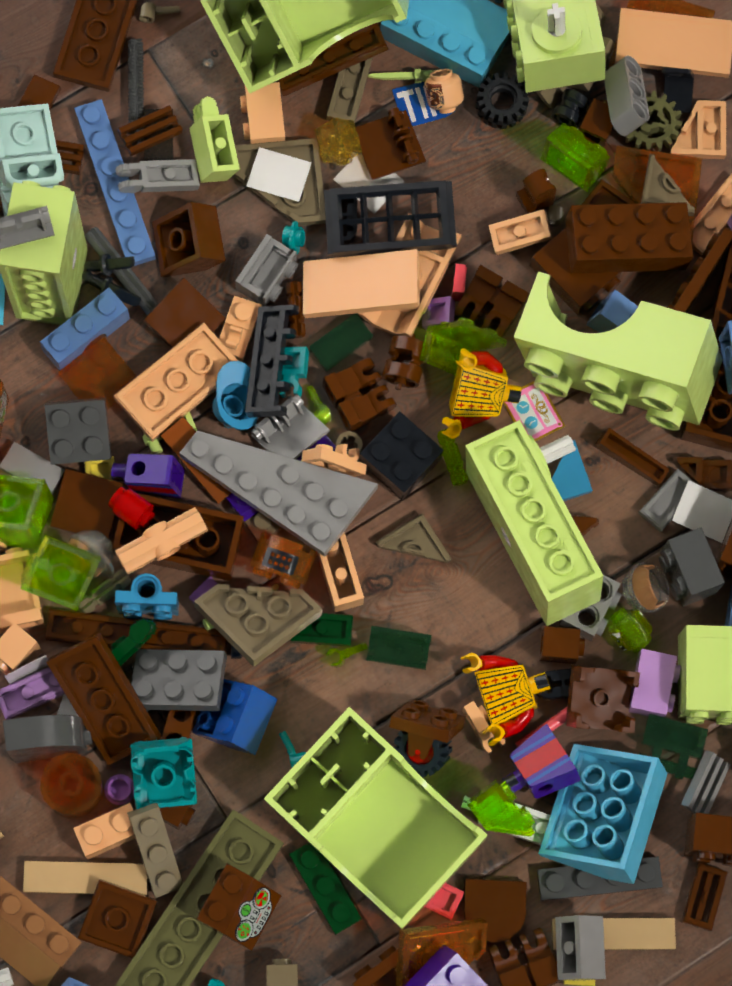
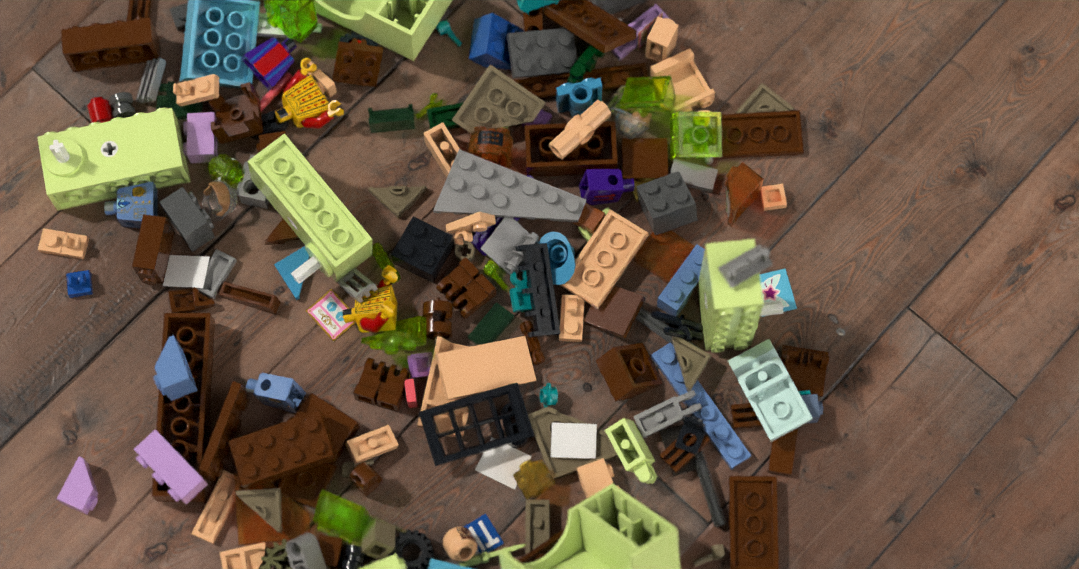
camera: 175 degrees right, 5 degrees down
(110, 227) = (691, 361): none -> dark tan tile
(131, 508) = (608, 146): red brick -> none
(133, 140) = (695, 426): none -> black bracket
(266, 271) = (562, 363): light grey hinge -> none
(389, 144) = (493, 493): reddish brown hinge -> none
(486, 409) = (362, 290): none -> light grey tile
(537, 118) = (378, 539): none -> dark tan brick
(647, 740) = (197, 90): none -> light nougat plate
(651, 361) = (243, 329): yellowish green piece -> none

